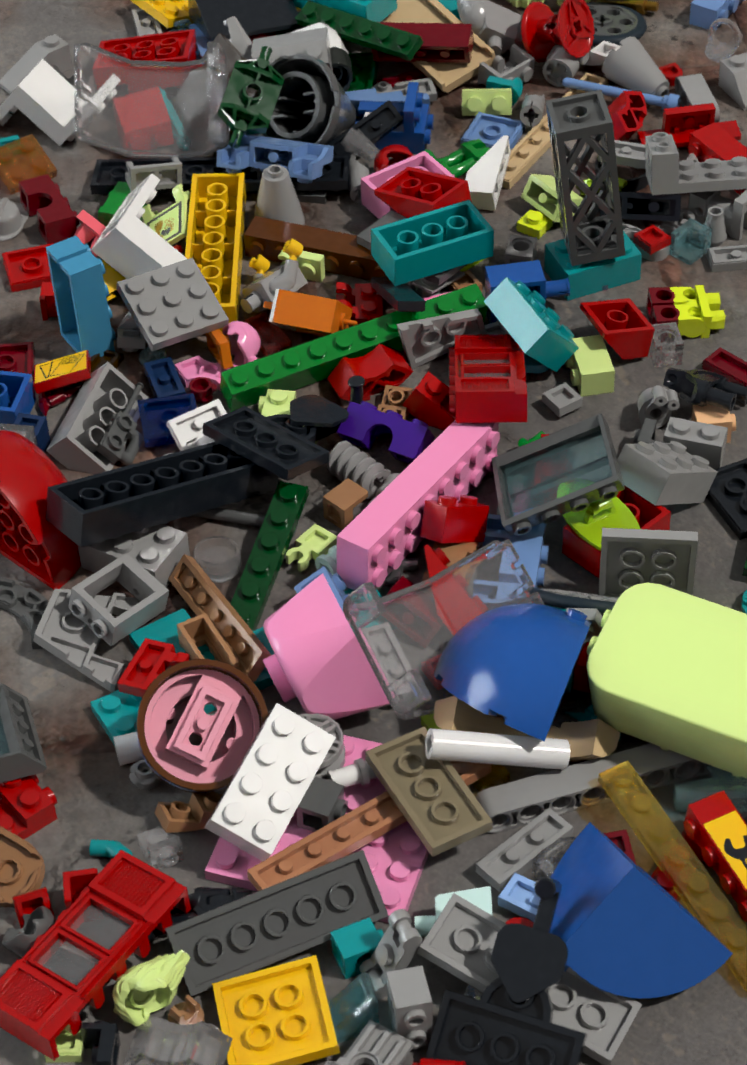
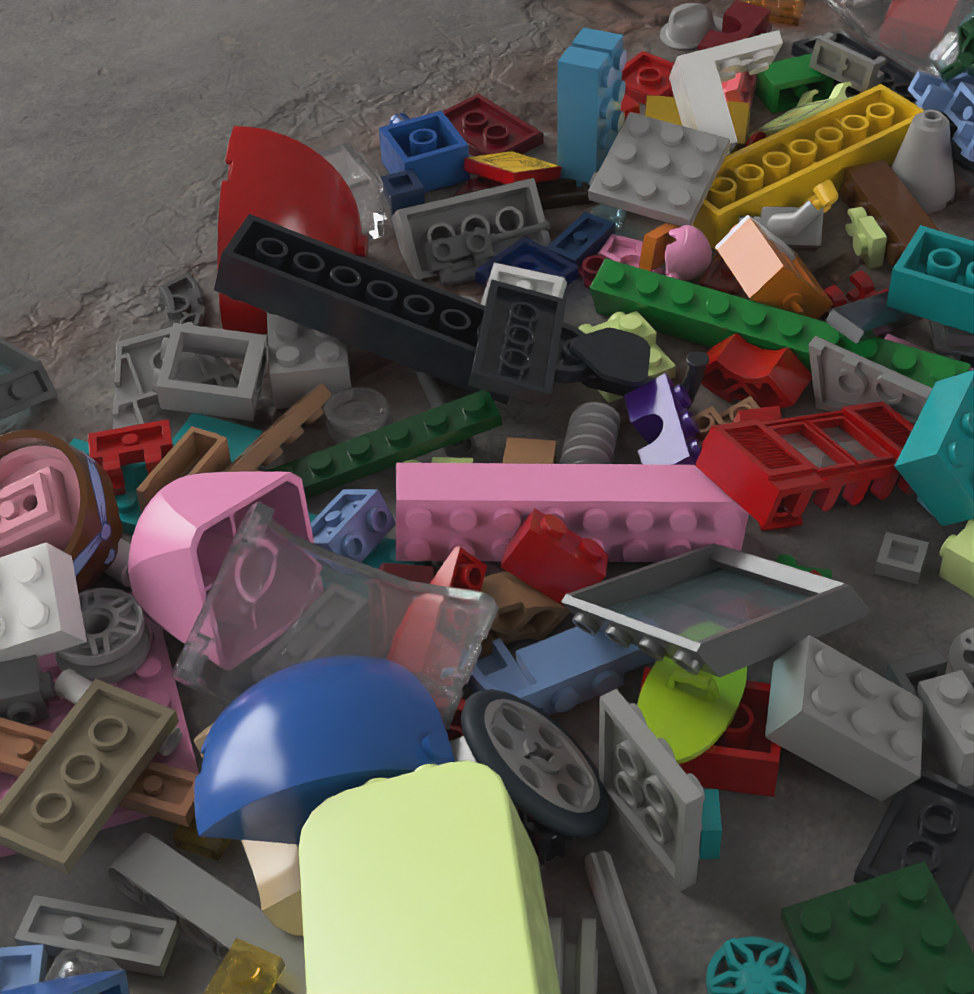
camera: 55 degrees right, 0 degrees up
(497, 749) = (172, 788): white piece -> none

